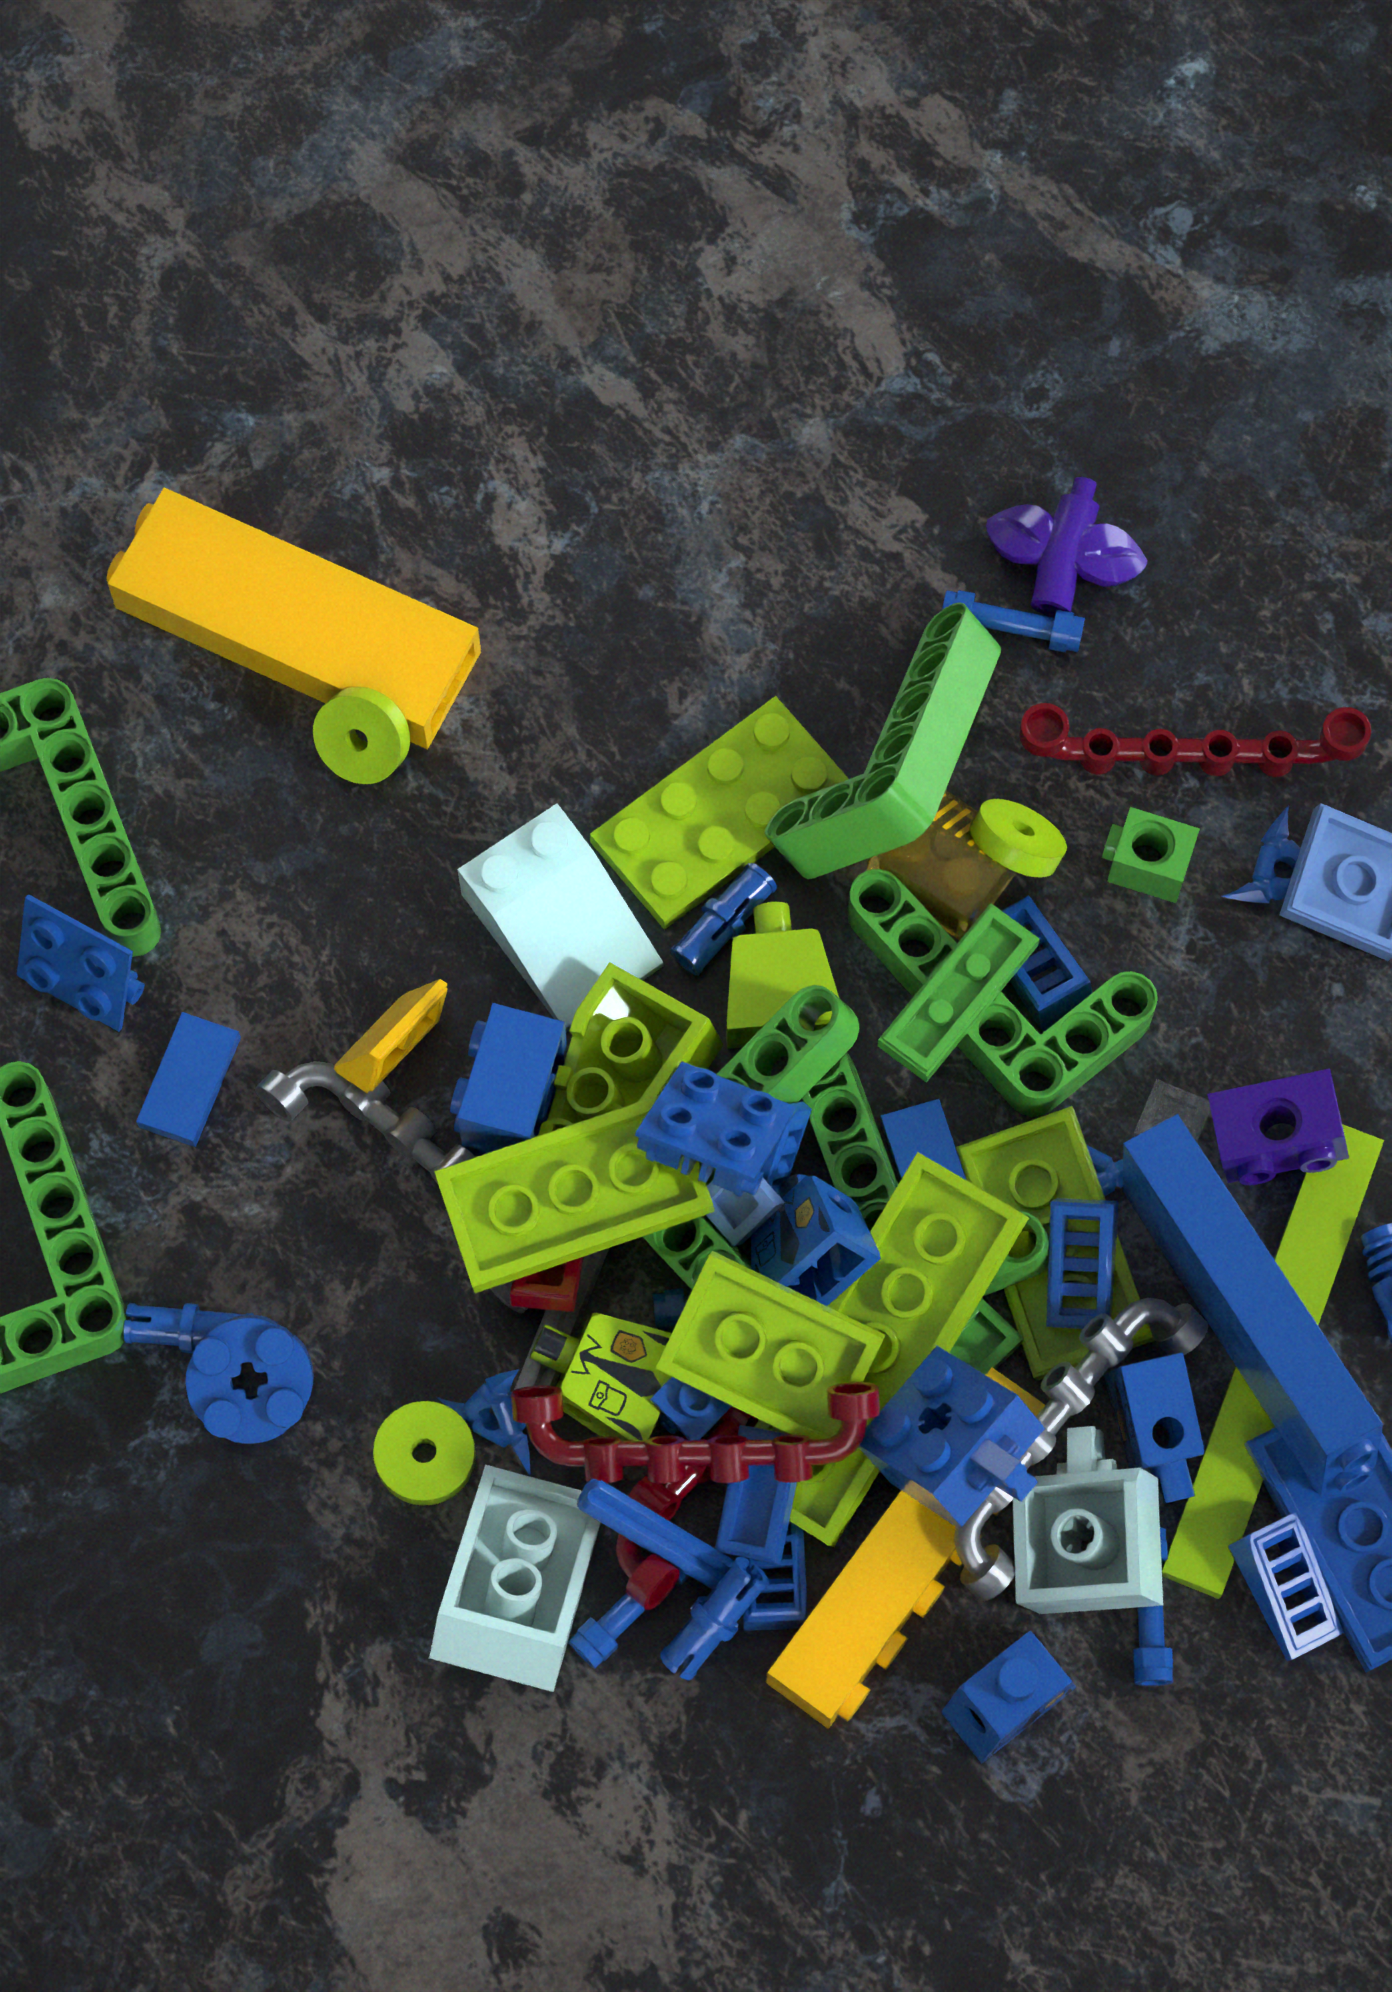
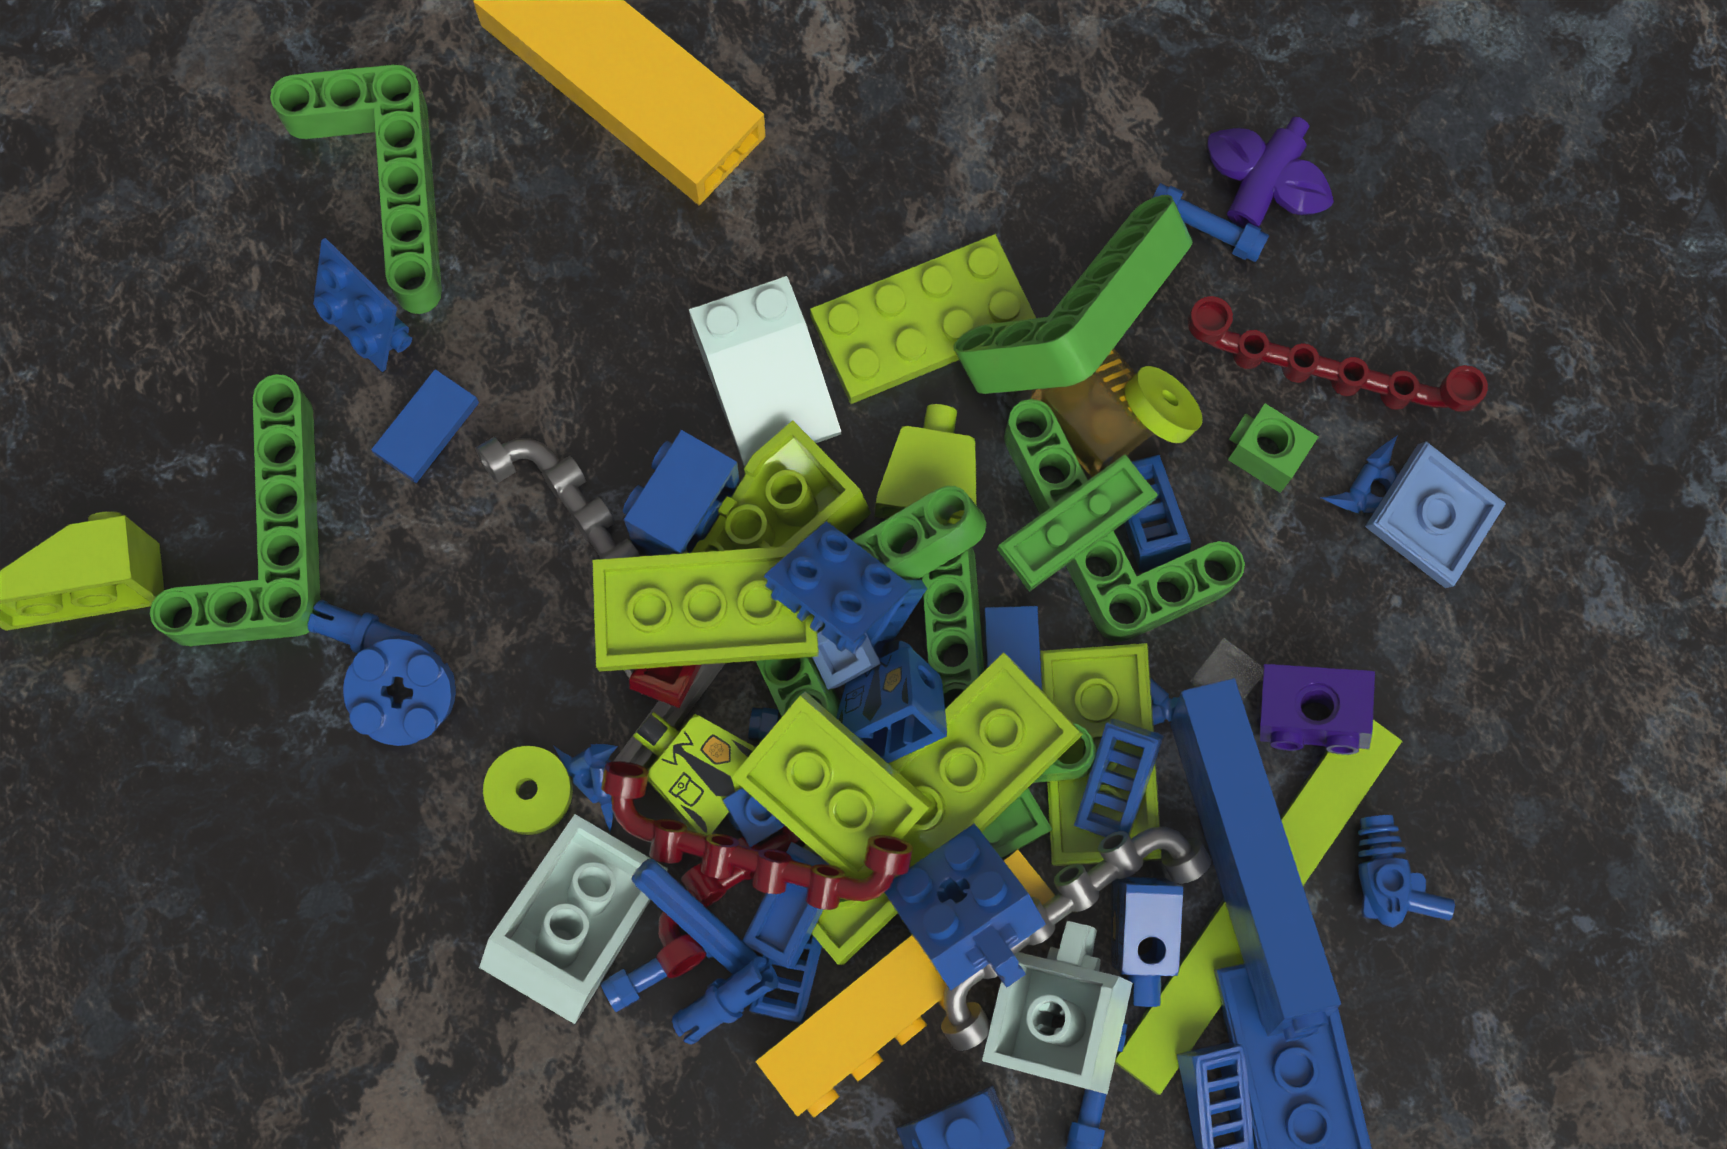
camera: 10 degrees right, 5 degrees up
(379, 721) = (663, 176): lime piece -> none
(393, 1036) = (599, 435): yellow slope -> none
(723, 918) = (900, 408): blue pin -> none

